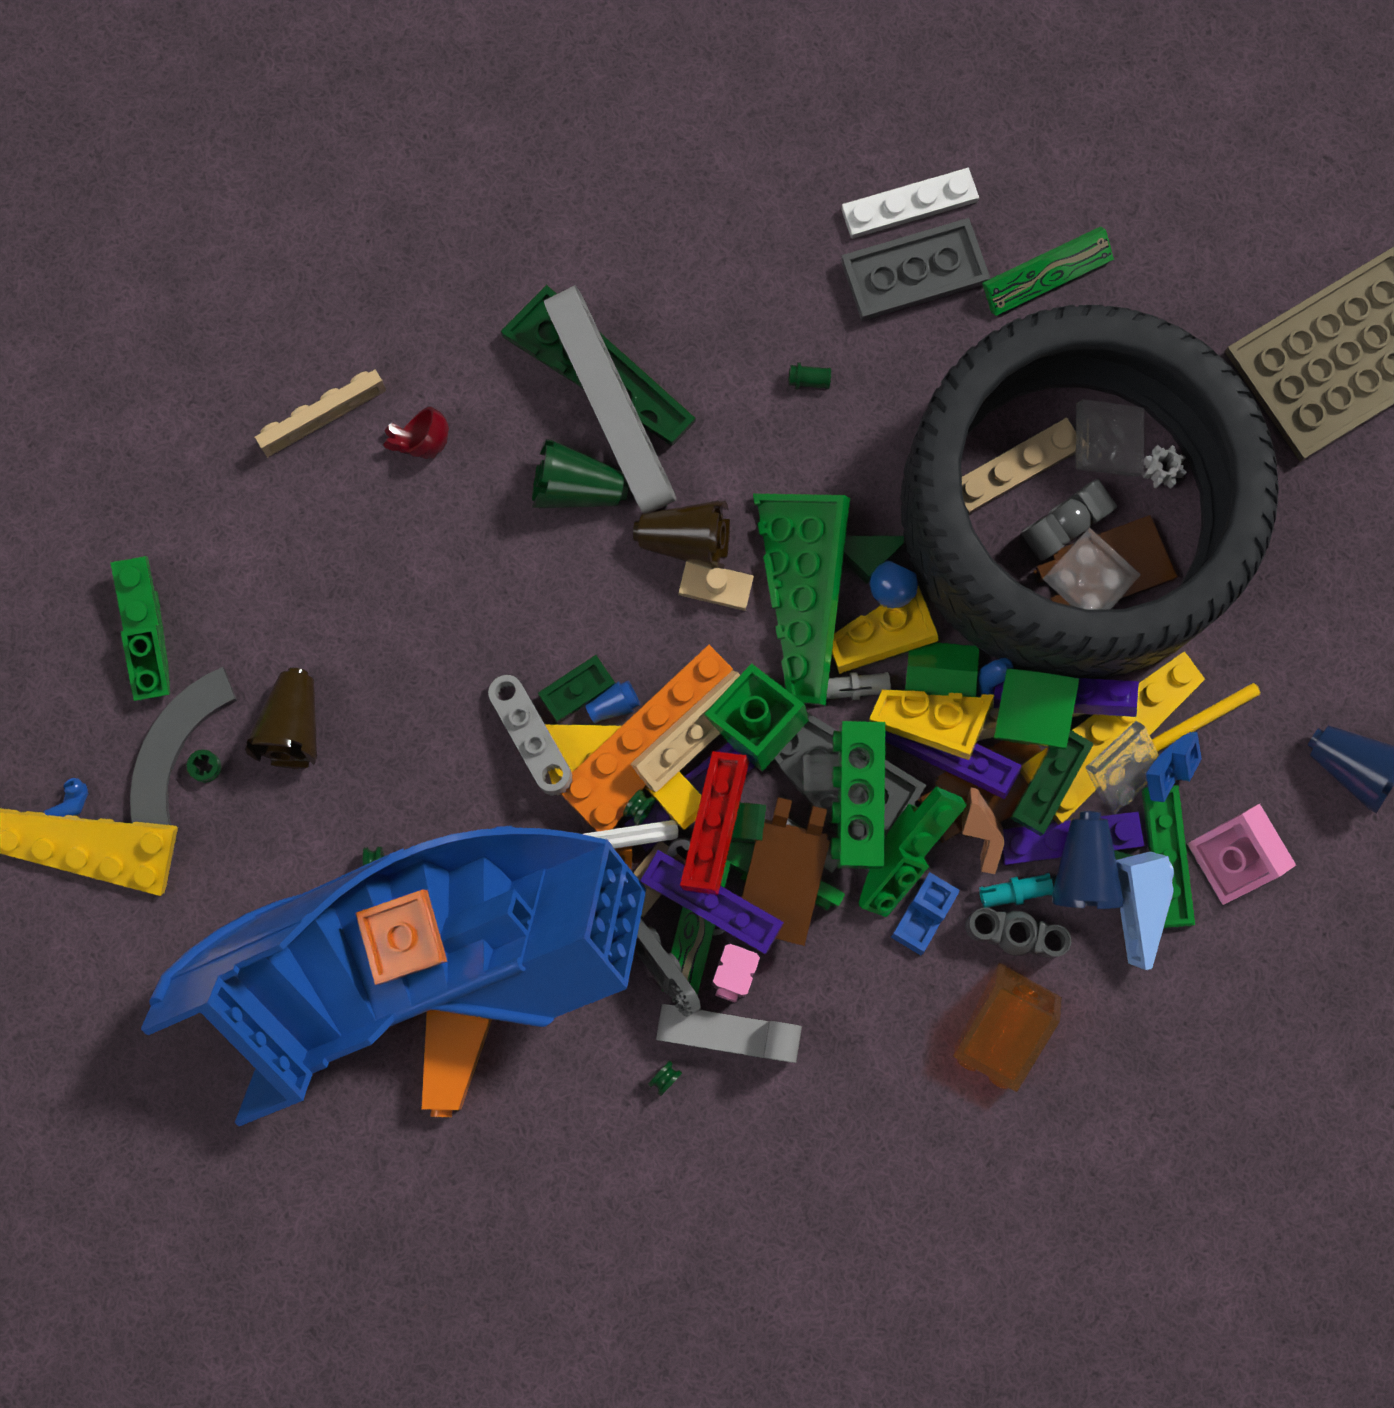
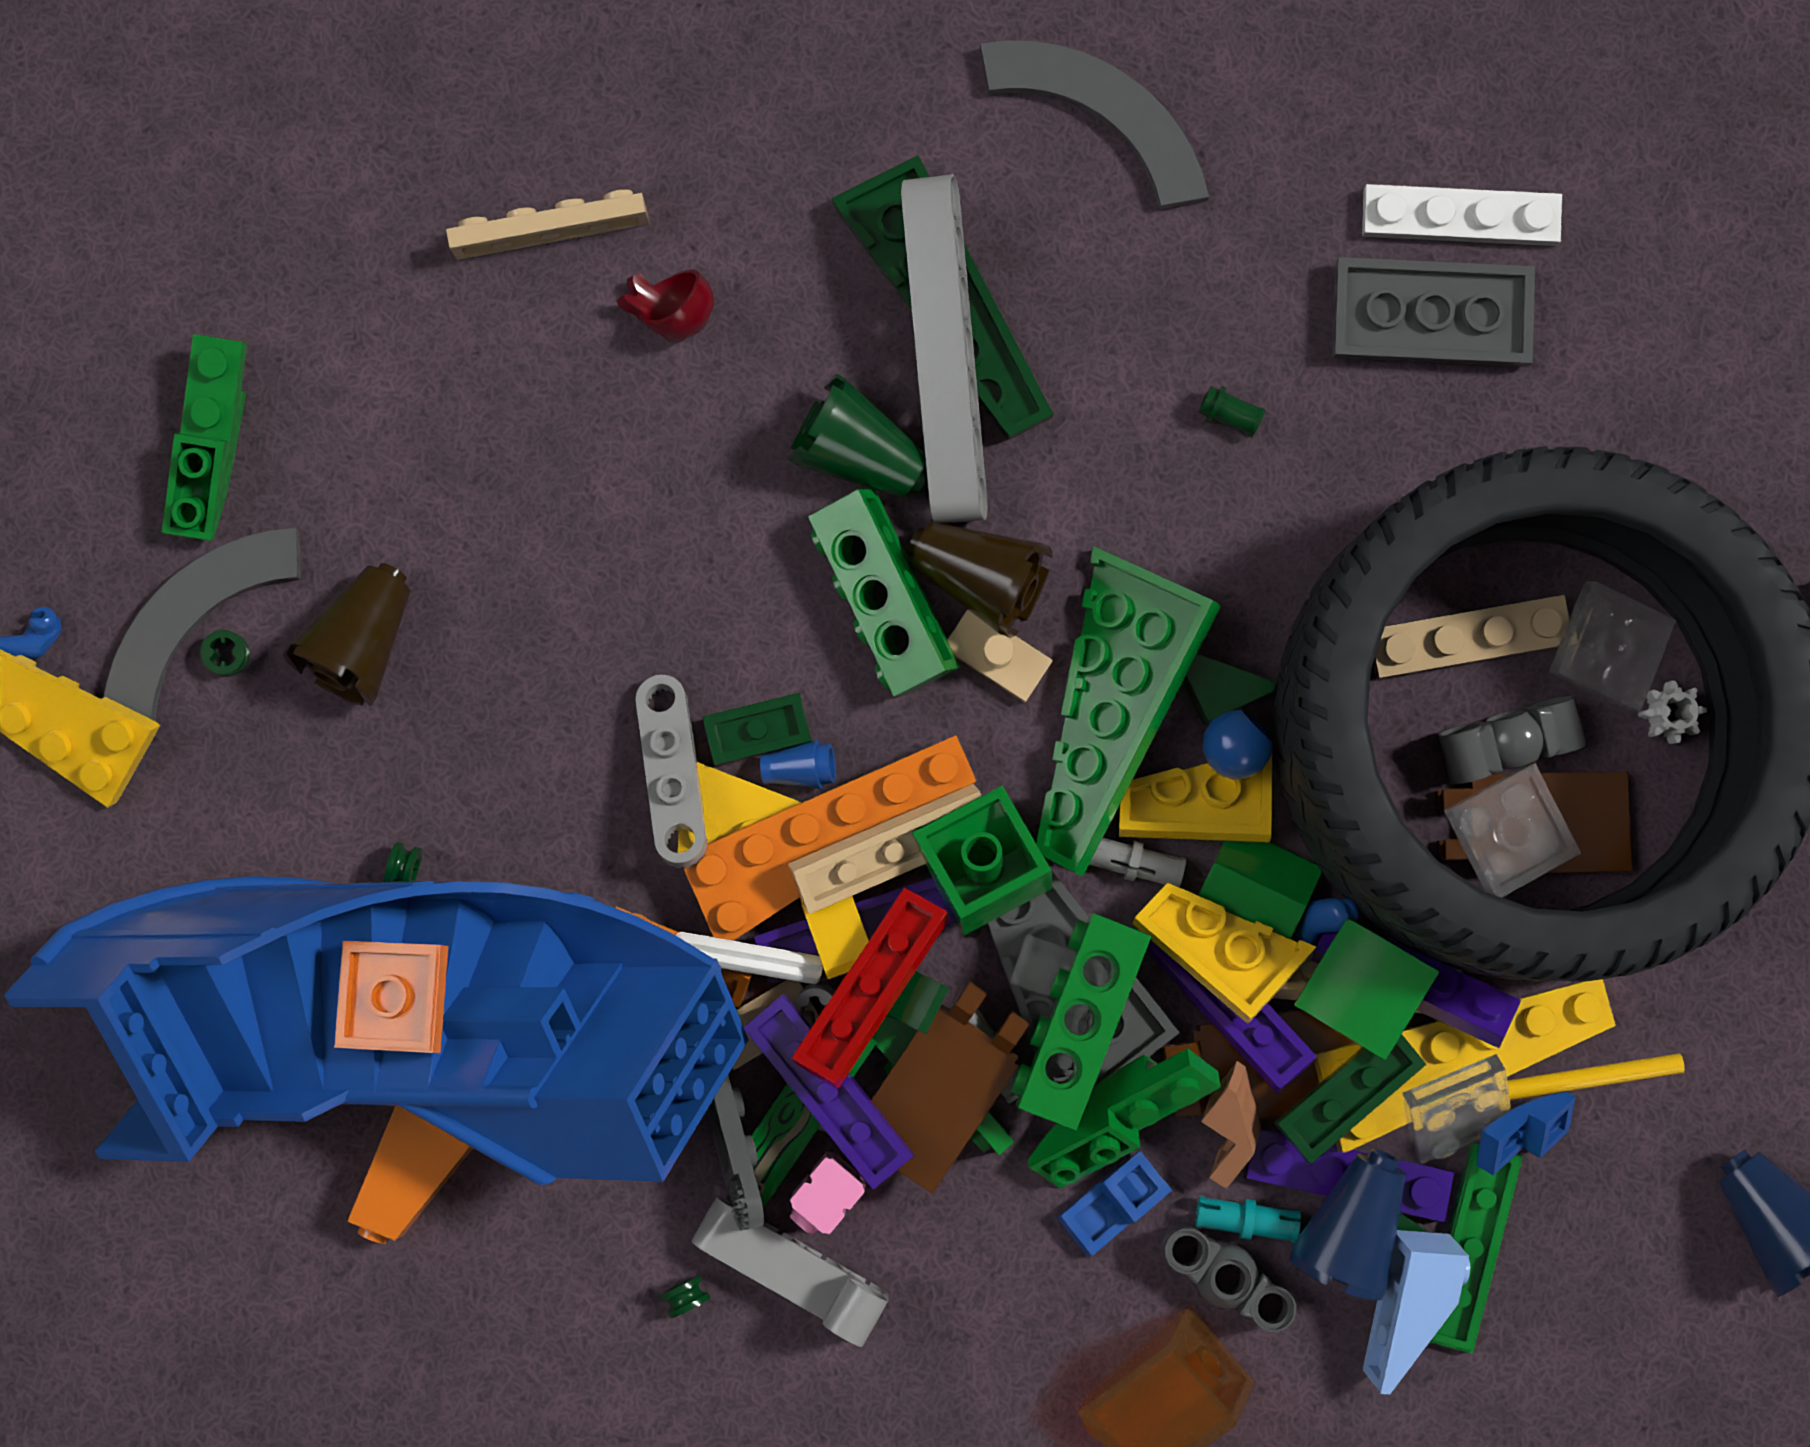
camera: 20 degrees right, 5 degrees up
(639, 806) = (781, 923): dark green bush -> none
(657, 207) = (1109, 96): none -> dark grey tile
(671, 598) = (907, 605): none -> green brick
(1048, 271) = (1617, 380): green tile -> none
(1241, 854) = (1573, 1283): bright pink slope -> none

